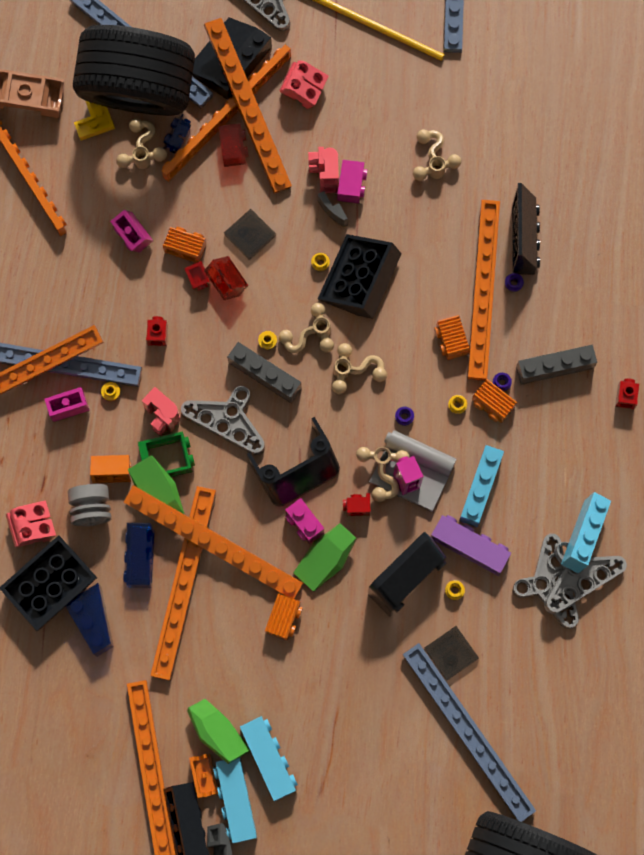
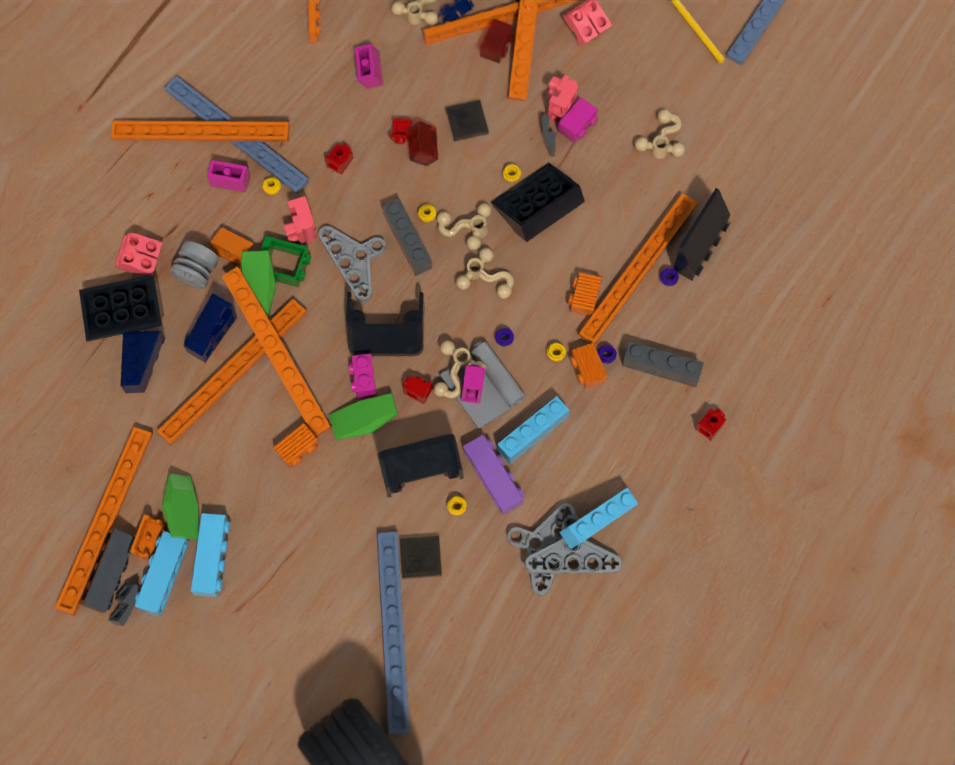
camera: 30 degrees right, 5 degrees down
(184, 244) = (406, 100): orange brick -> none

